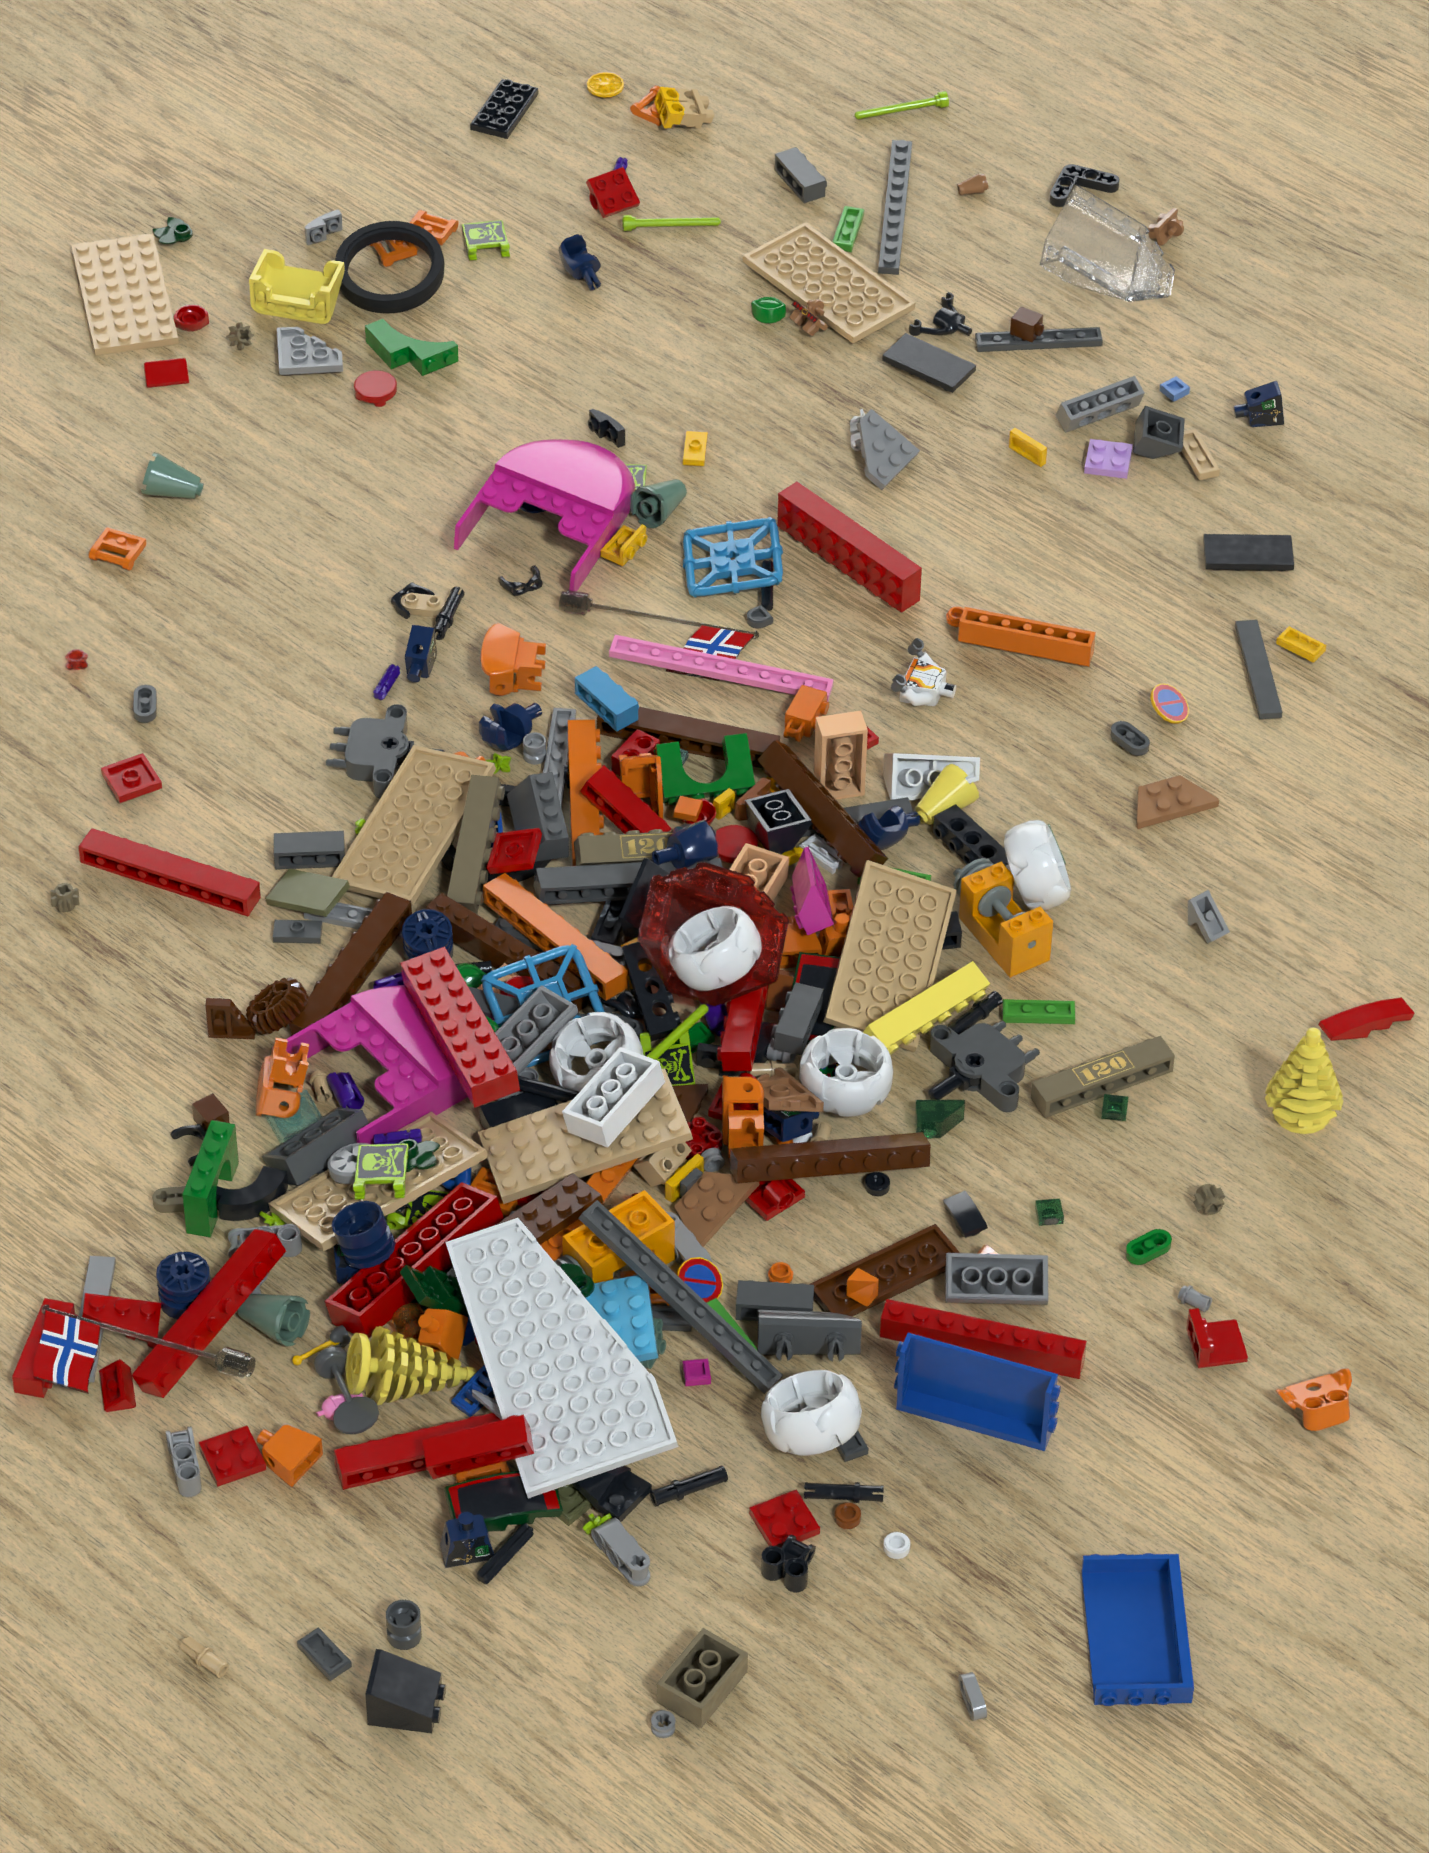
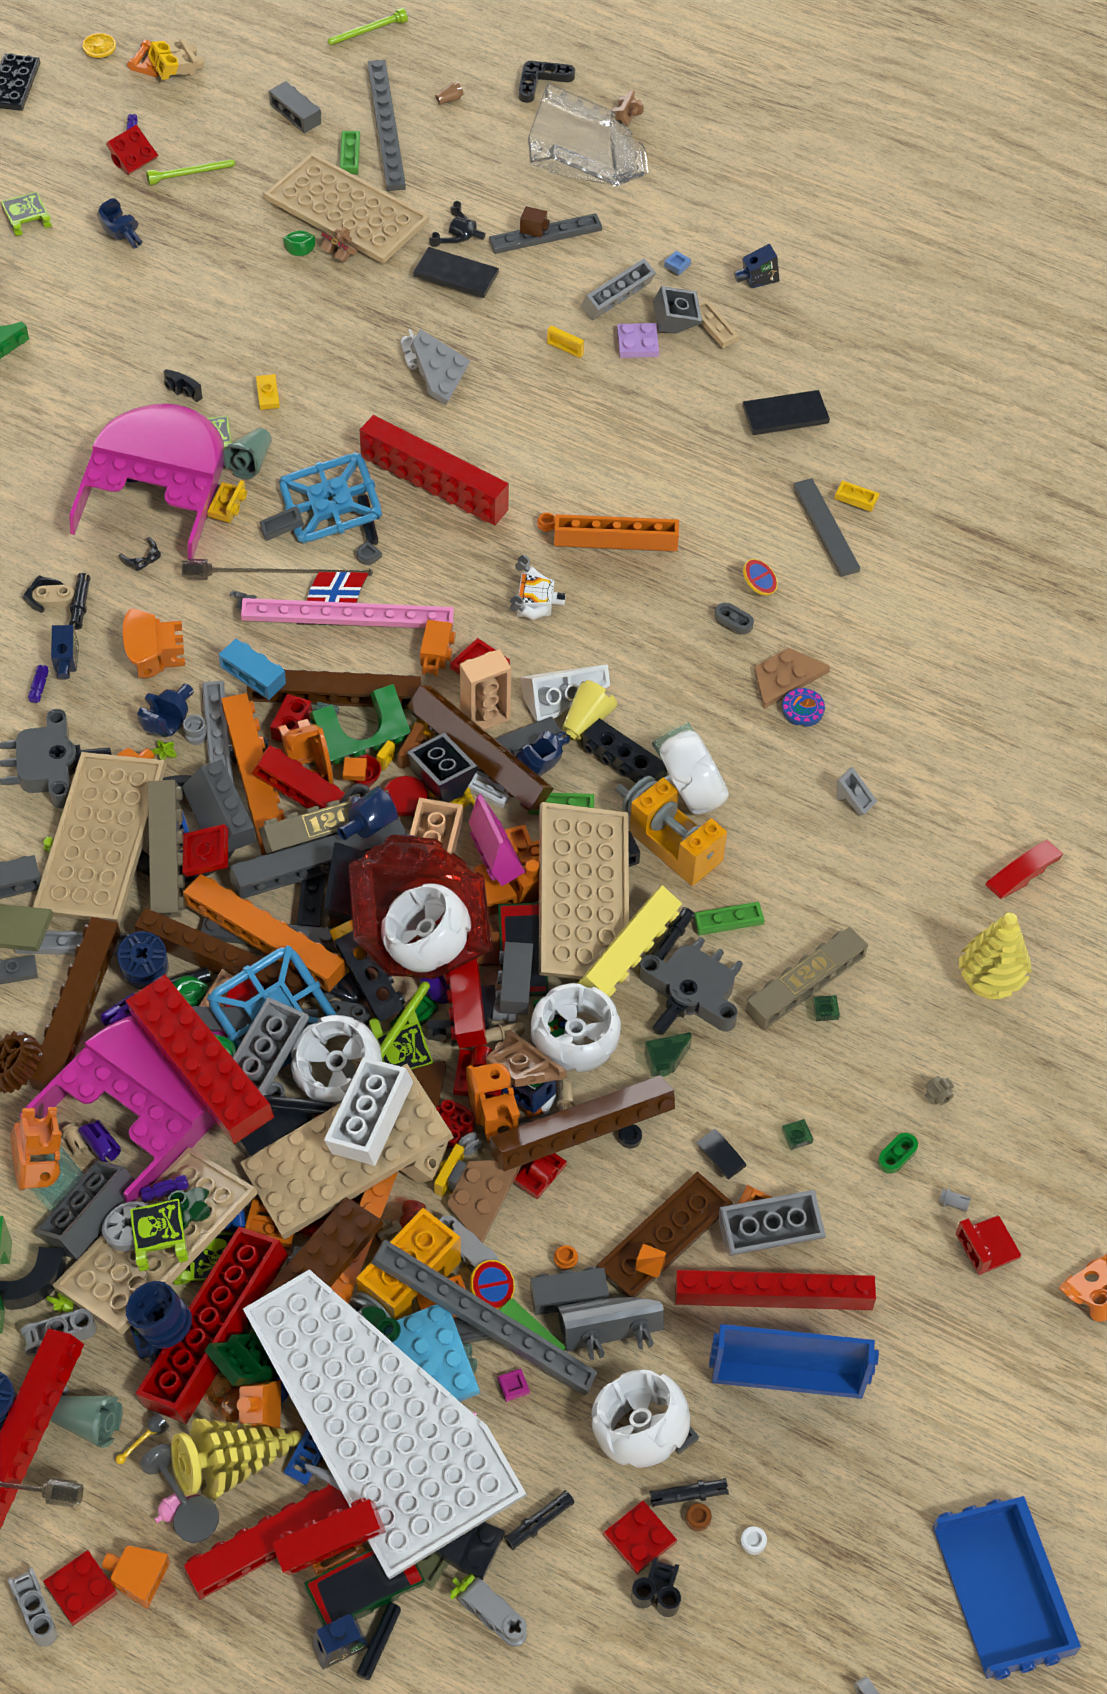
camera: 15 degrees left, 10 degrees up
(612, 632) = (239, 596): none -> dark grey plant
(675, 573) = (281, 523): none -> dark grey tile
(1179, 833) = (803, 707): none -> blue tile

